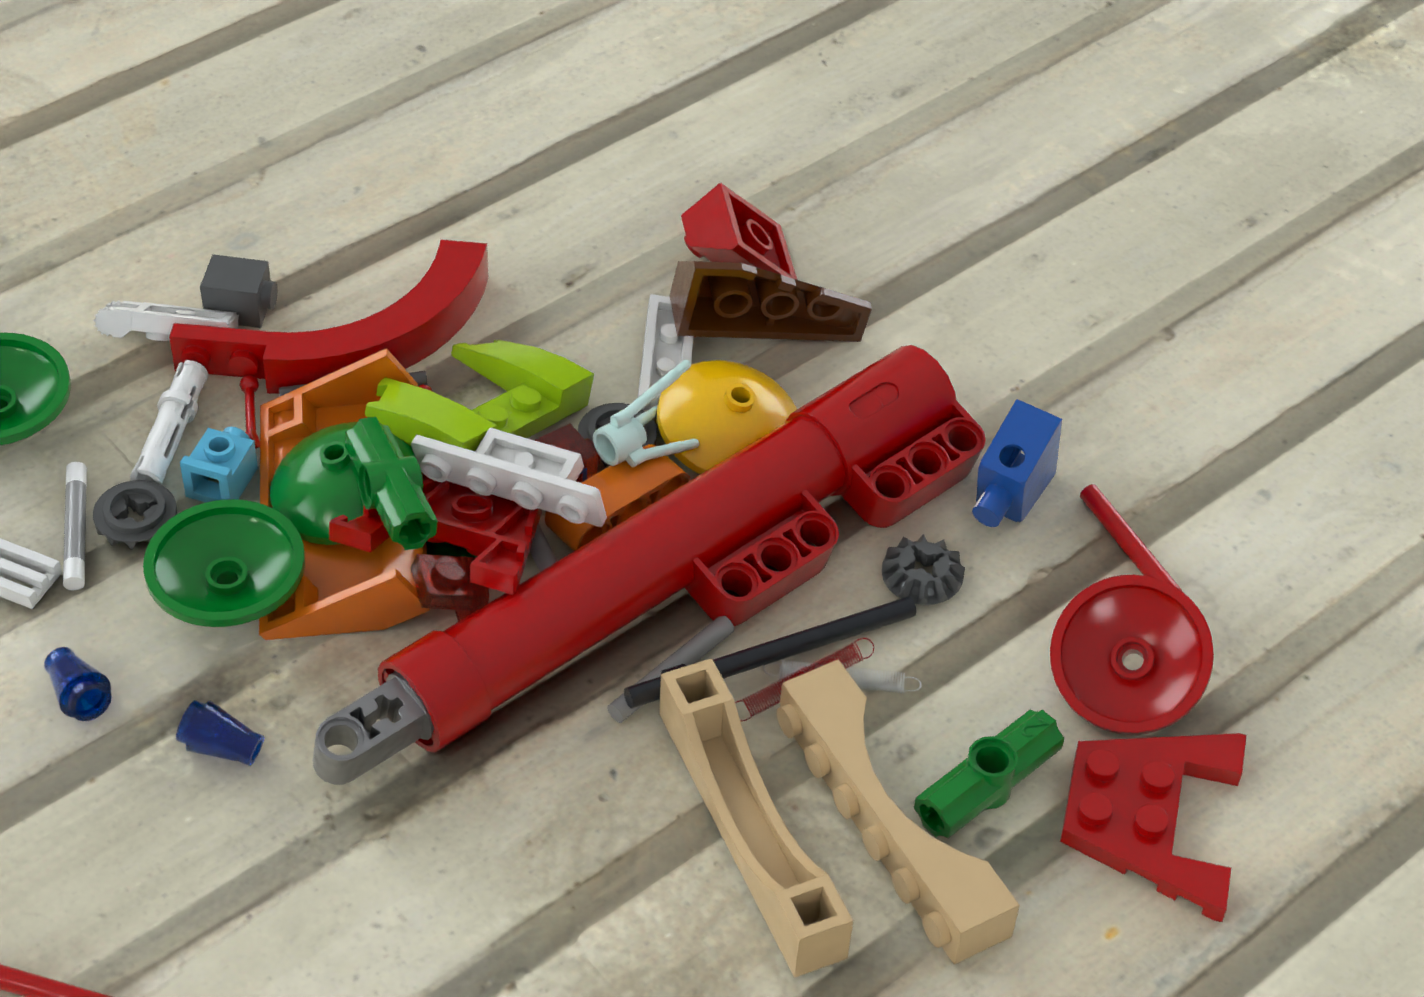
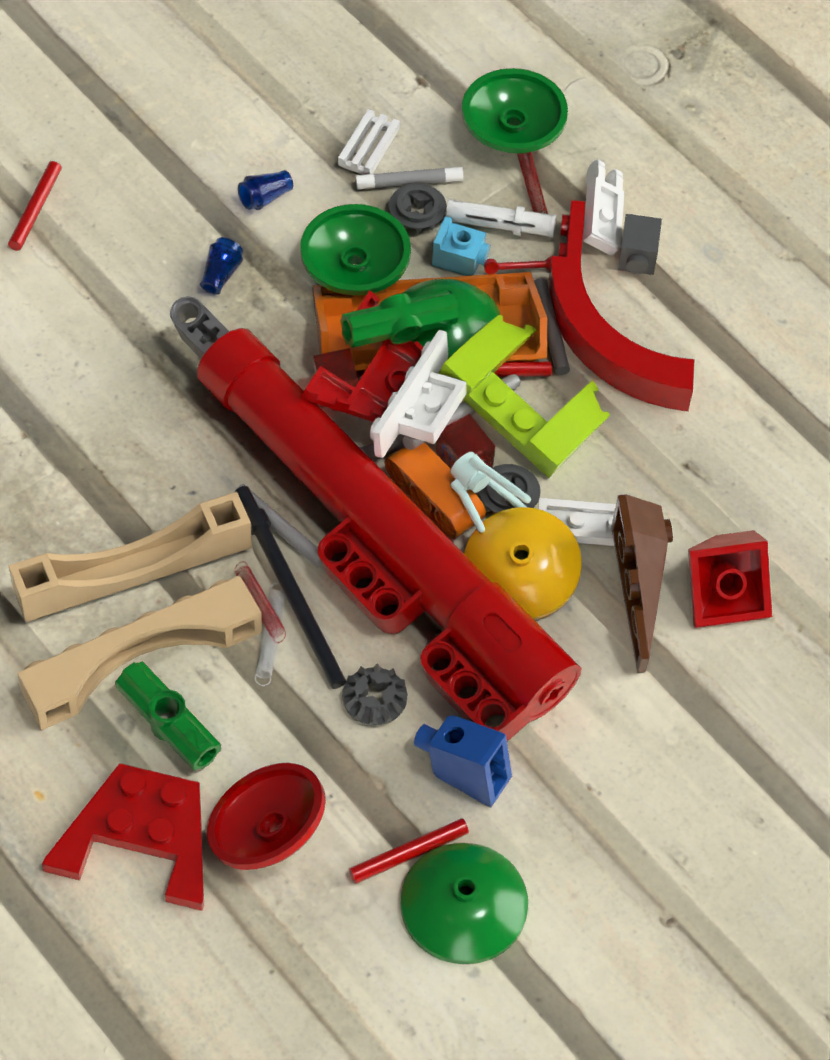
camera: 90 degrees right, 10 degrees up
(115, 390) = (537, 180): none -> red piece
(1184, 498) = (460, 925): none -> green dish

